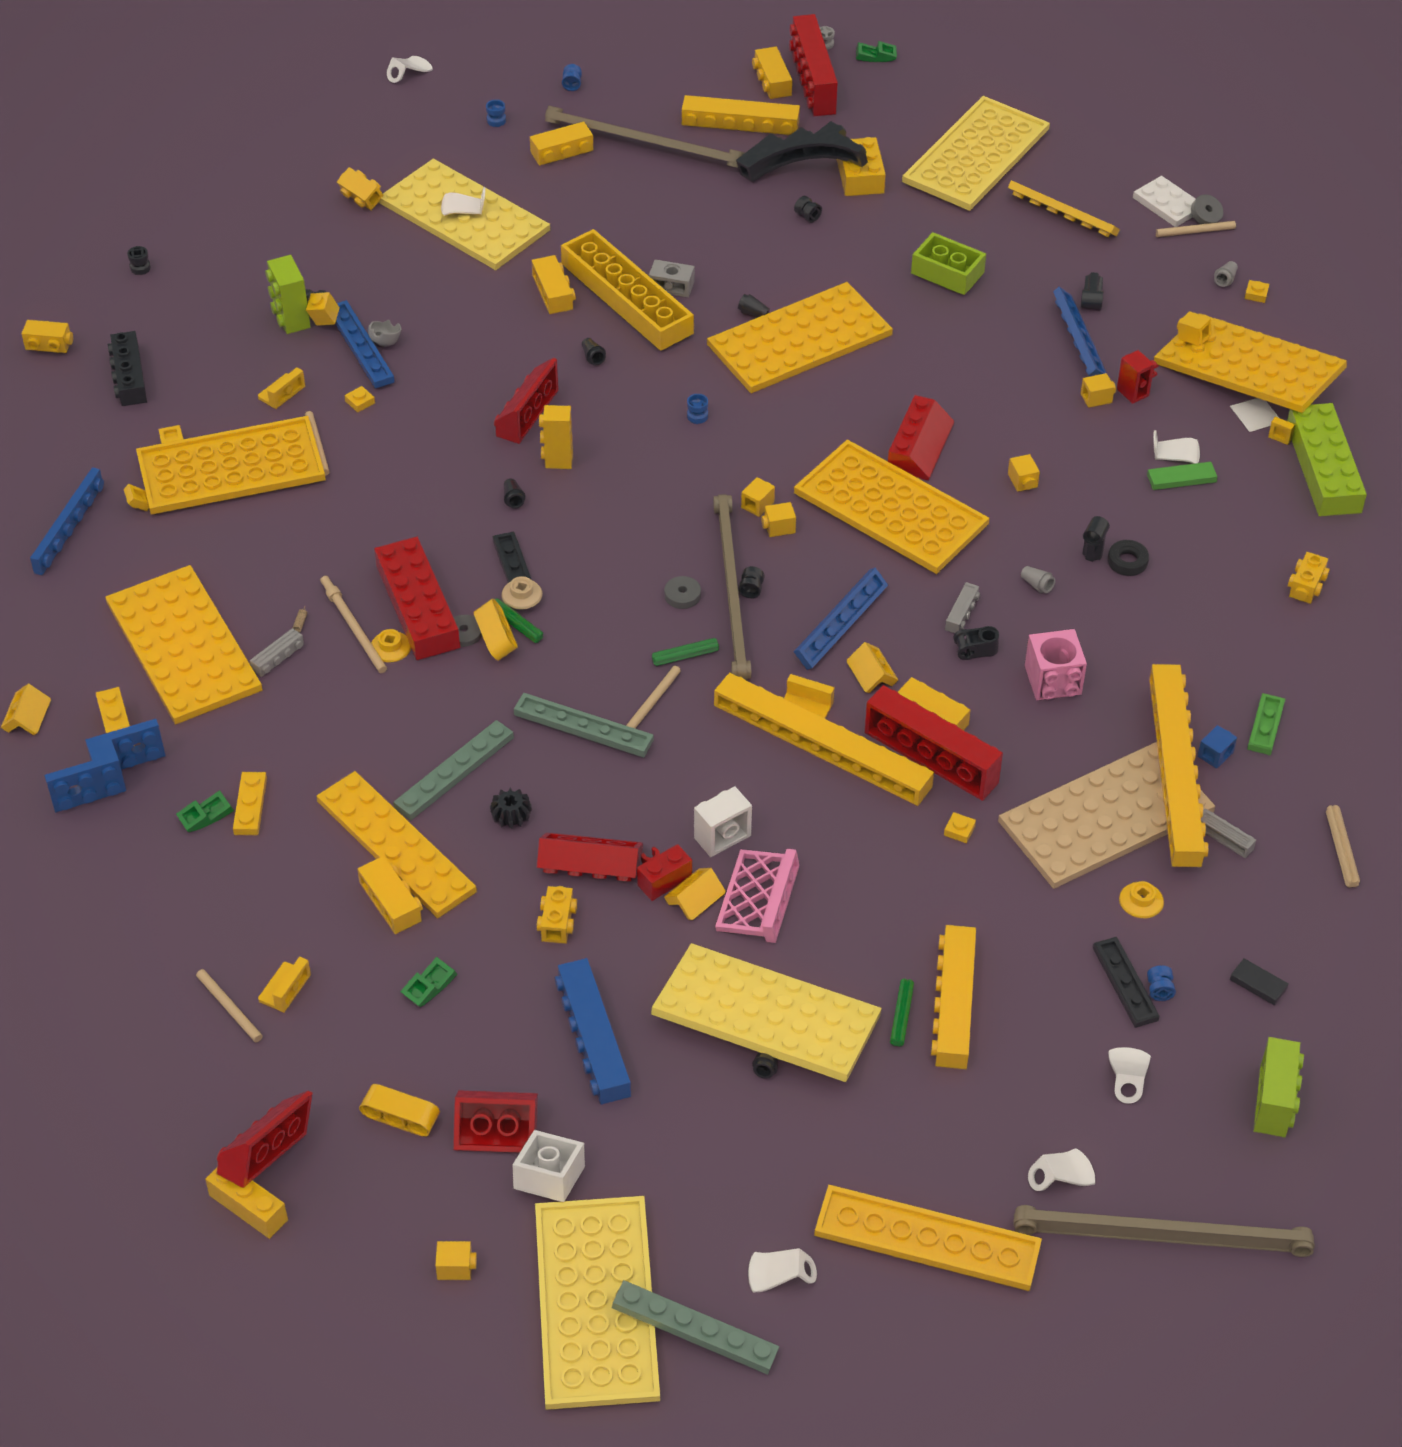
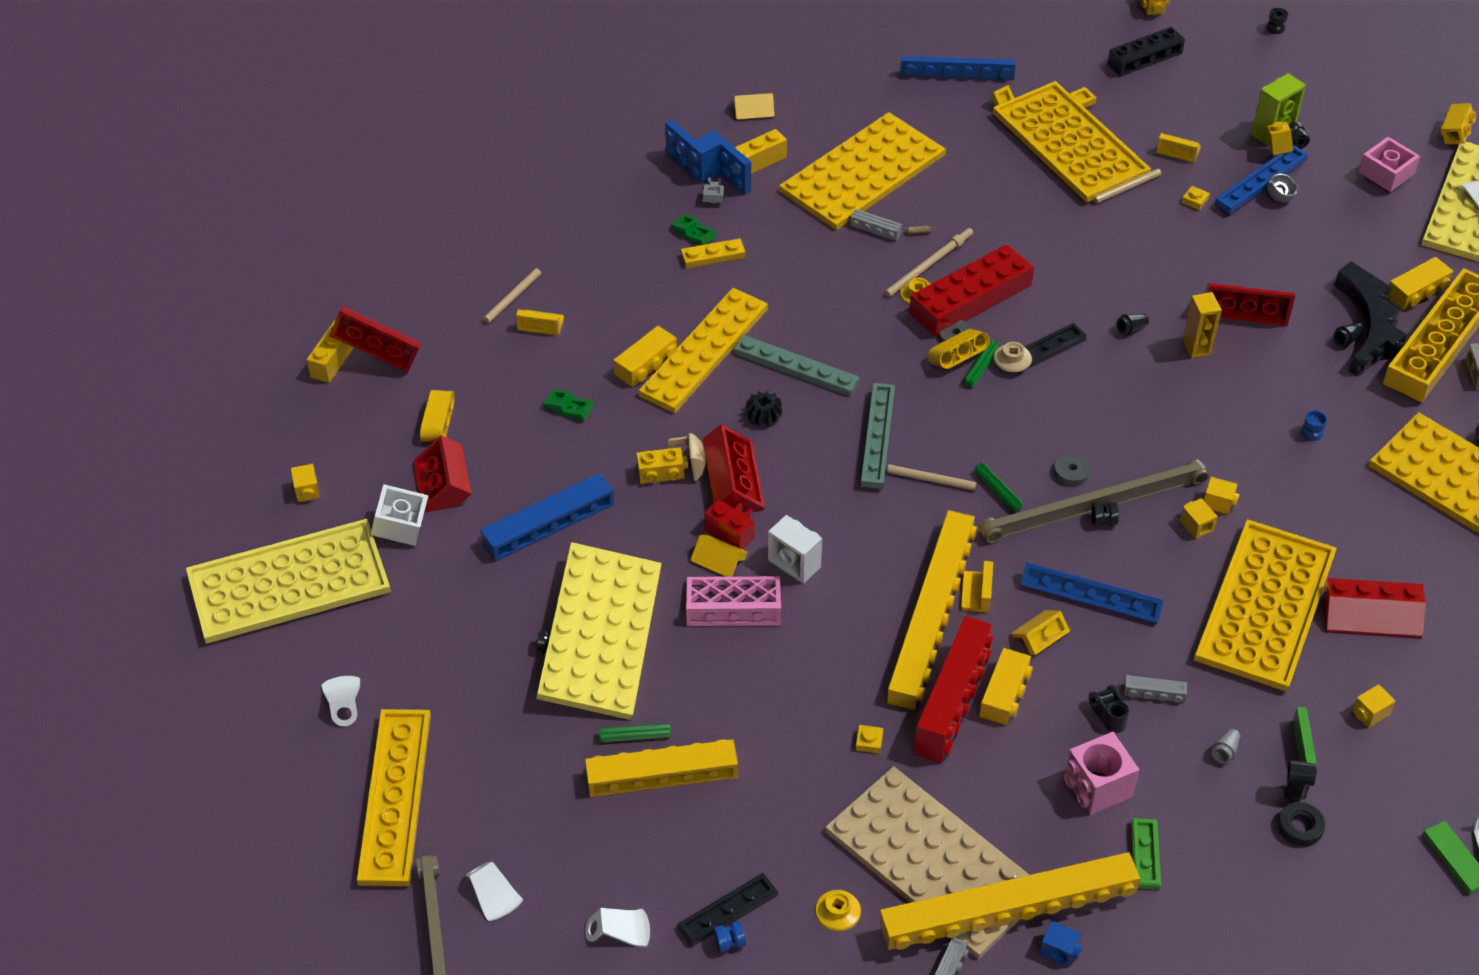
camera: 75 degrees right, 0 degrees up
(155, 779) = (713, 191): none -> light grey plate
(392, 250) = (1389, 164): none -> bright pink brick
(556, 876) = (695, 450): none -> tan piece
(582, 323) = (1380, 317): none -> black arch
(695, 1327) = (270, 648): sand green plate -> none
(1051, 528) = (1303, 736): none -> bright green tile
(1125, 665) = (1146, 852): none -> bright green tile

